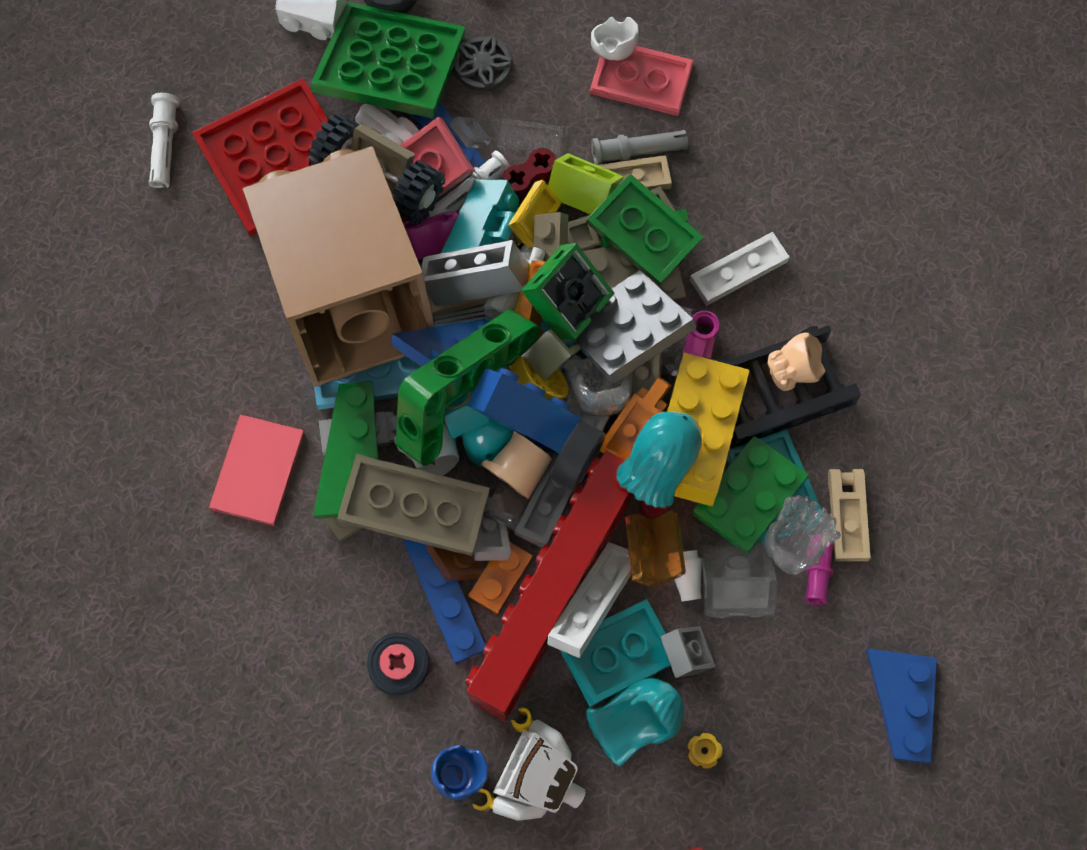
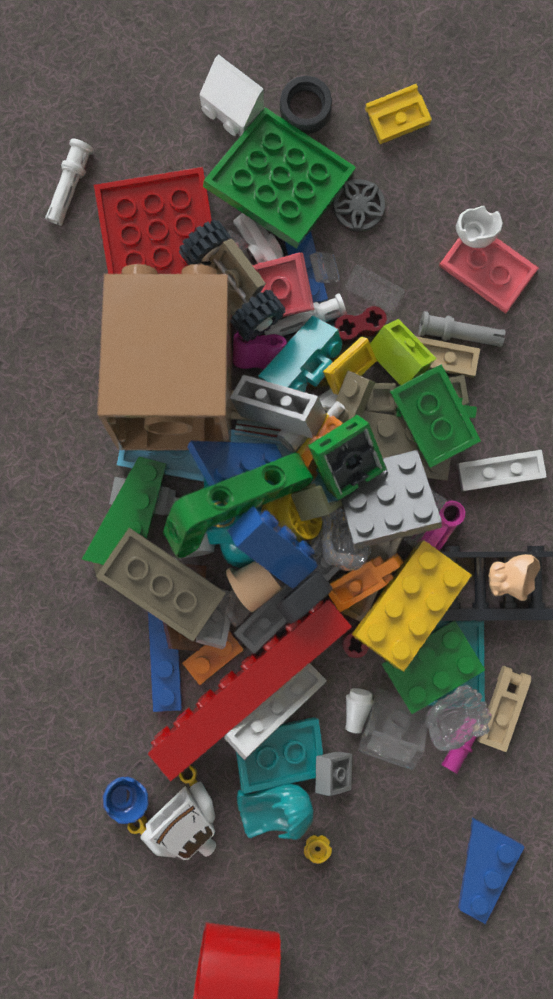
camera: 20 degrees right, 15 degrees up
(257, 470) = (53, 499): coral tile -> none
(407, 672) = (118, 690): black wheel -> none
(655, 548) = (340, 682): clear orange panel -> none
(661, 458) = (369, 630): teal piece -> none

